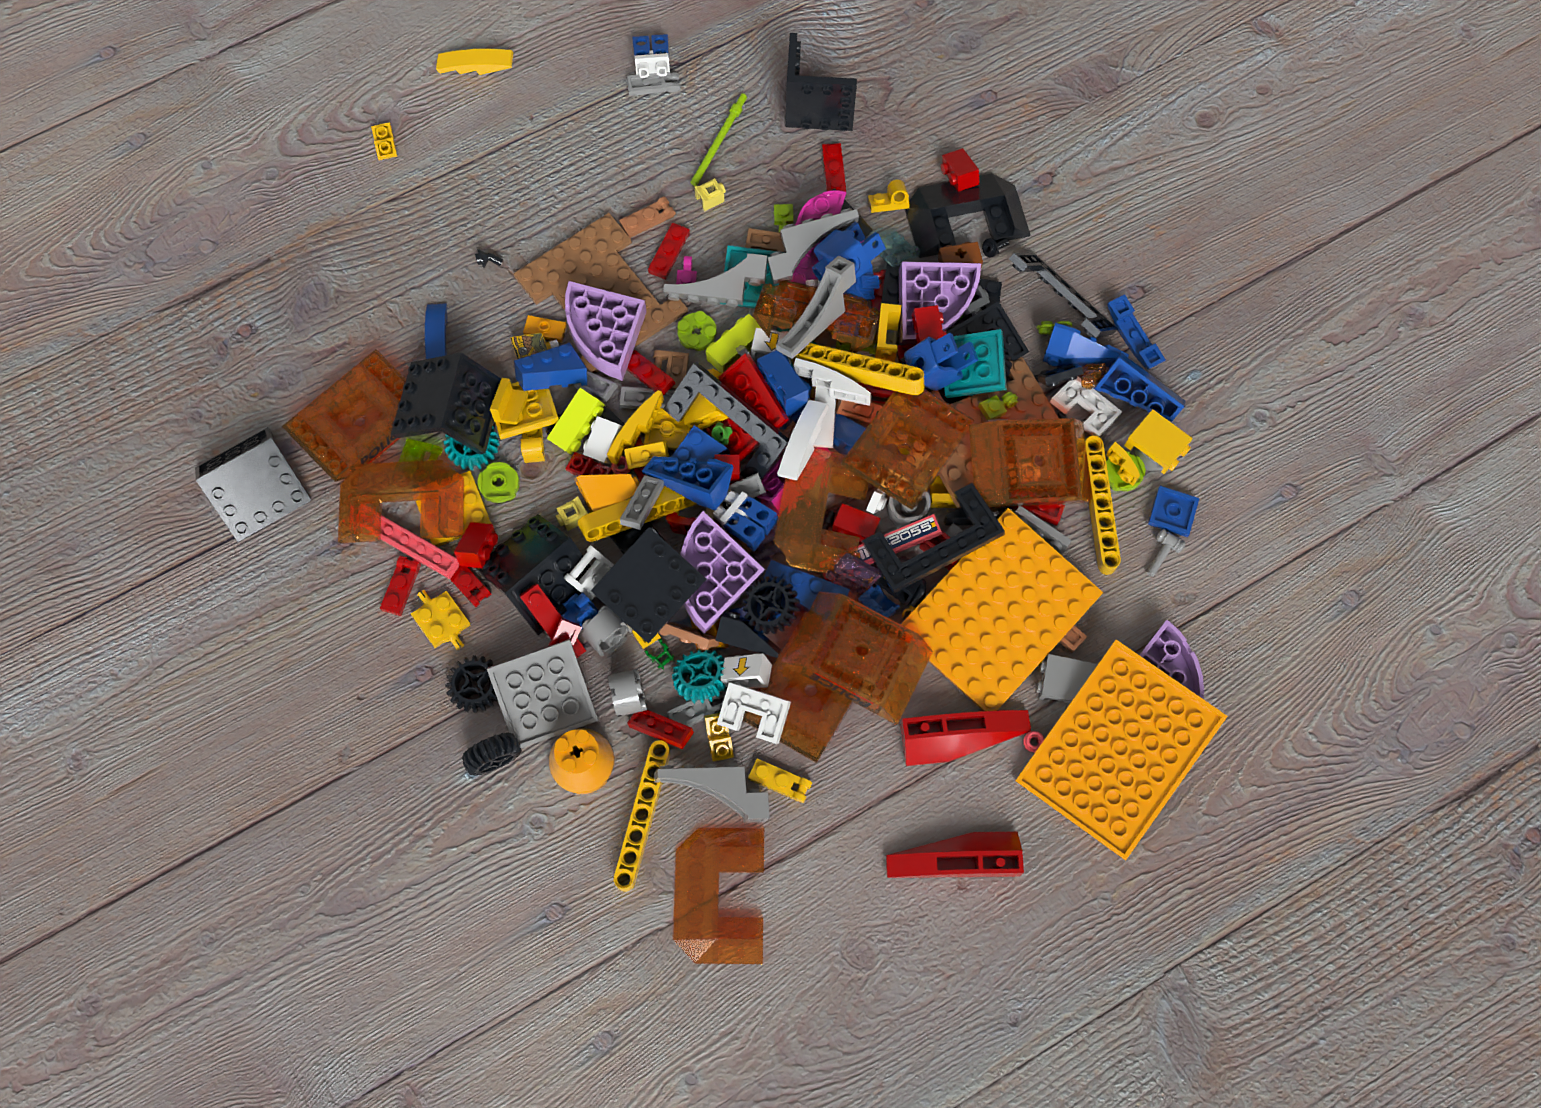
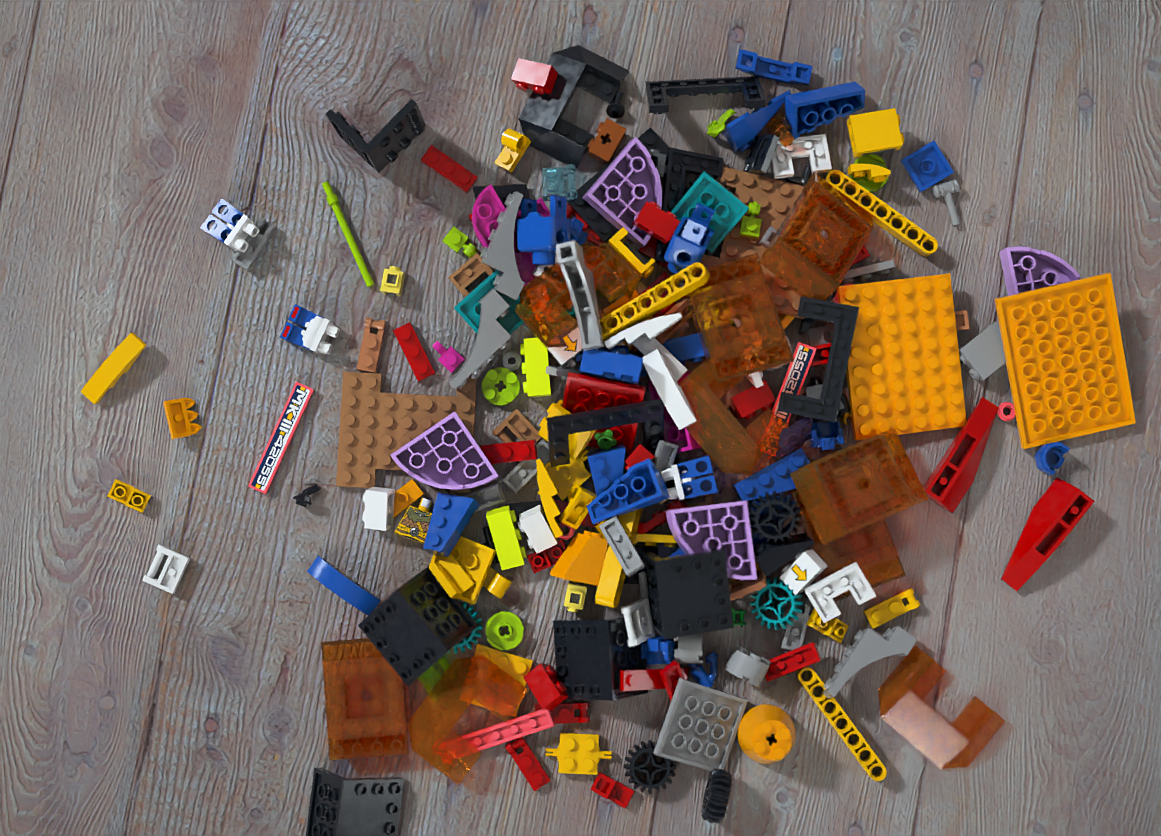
camera: 50 degrees left, 15 degrees up
(347, 211) = (171, 572): none -> white plate
(430, 671) = (612, 789): none -> red slope
(474, 130) = (180, 418): none -> light orange plate
(518, 210) = (281, 438): none -> tile
(520, 313) = (379, 508): none -> white brick
(589, 662) = (700, 674): none -> blue plant
(622, 172) = (316, 330): none -> hips
(669, 533) = (652, 539): none -> yellow plate
(724, 318) = (516, 365): none -> light grey plate
(1029, 809) = (1050, 457): none -> blue hair

